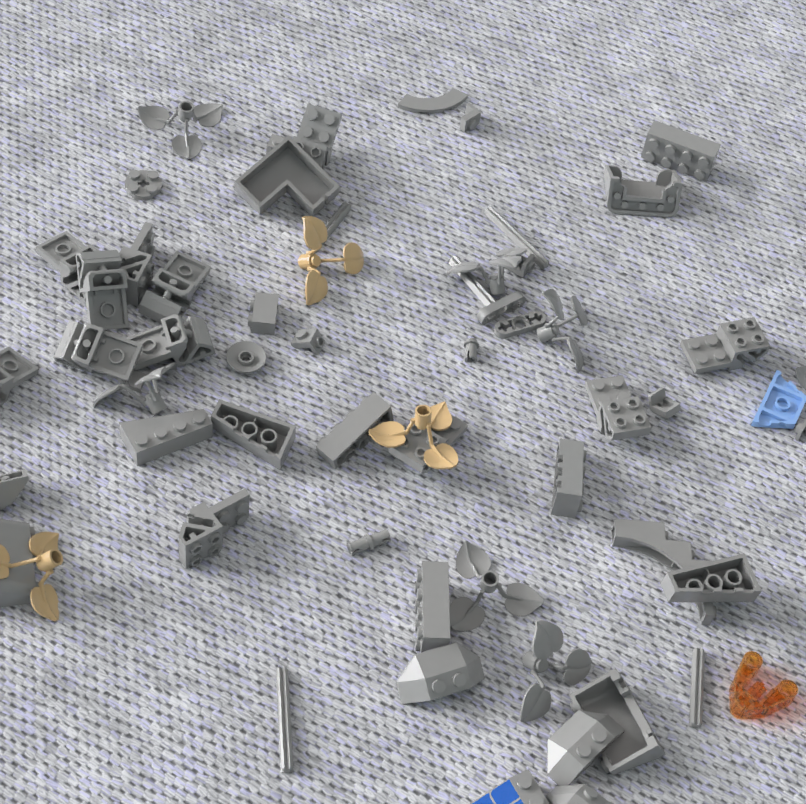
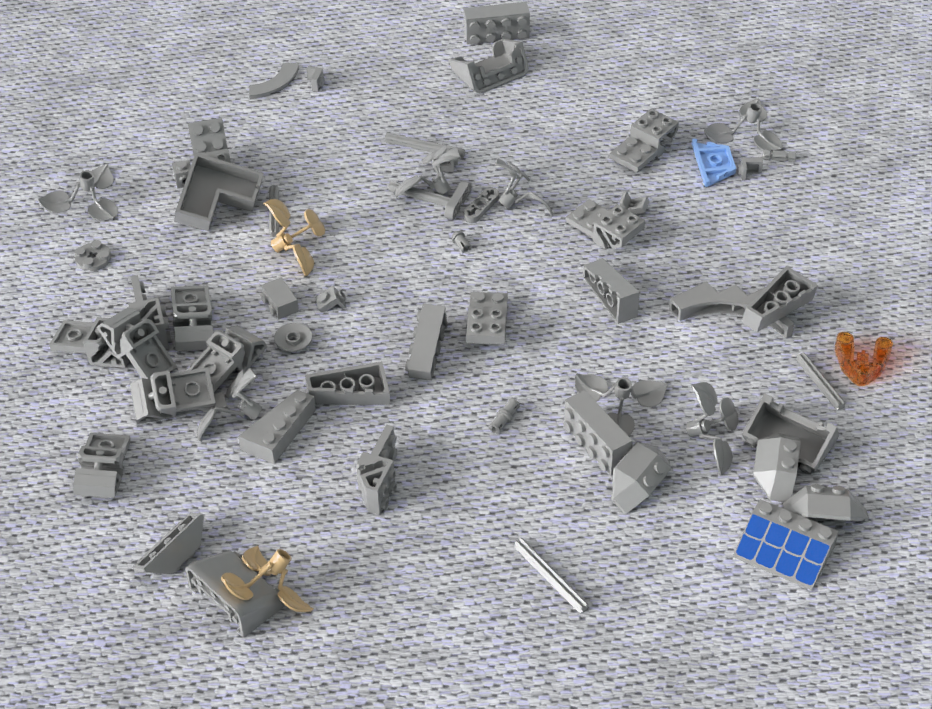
camera: 25 degrees left, 5 degrees down
(436, 417) = (483, 298): tan plant -> none

